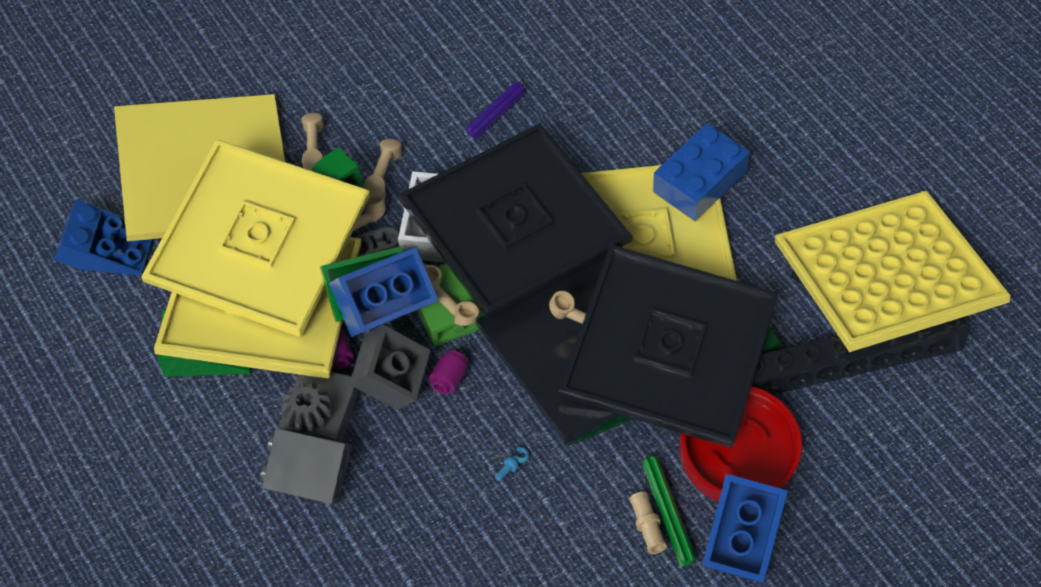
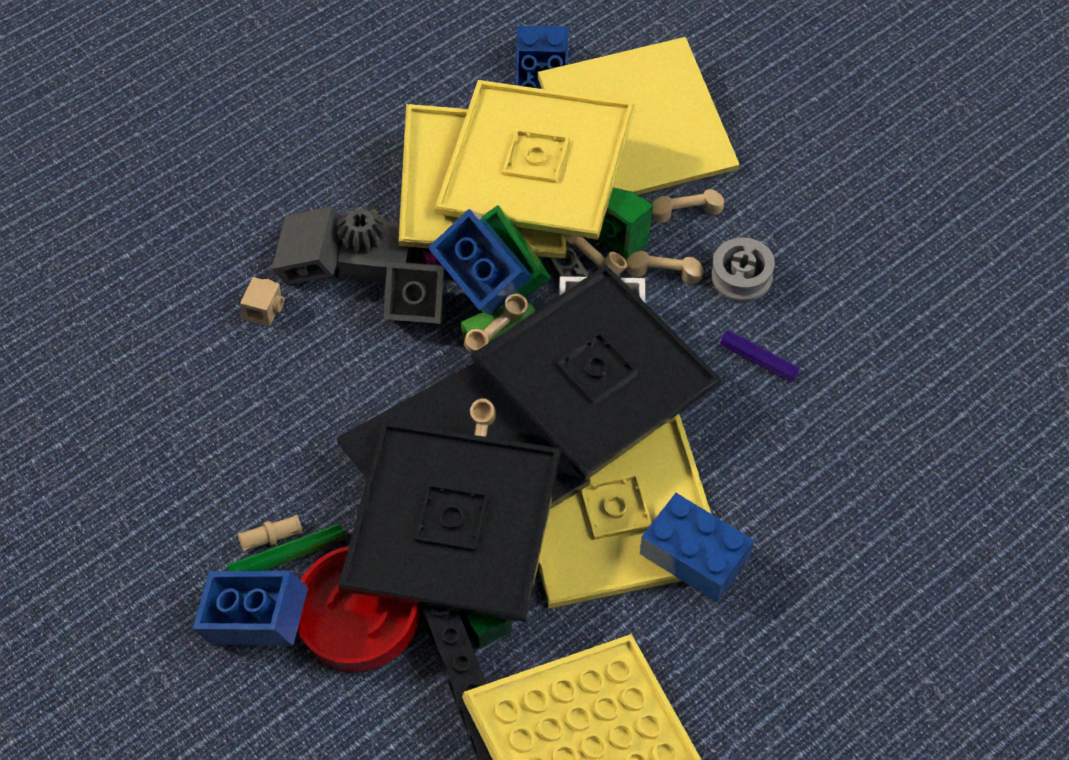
camera: 80 degrees right, 0 degrees up
(364, 520) = (261, 301): none -> tan brick
(411, 115) = (744, 257): none -> light grey wheel
(448, 372) = (425, 348): magenta brick -> none
(511, 463) = (331, 413): dark azure hand -> none

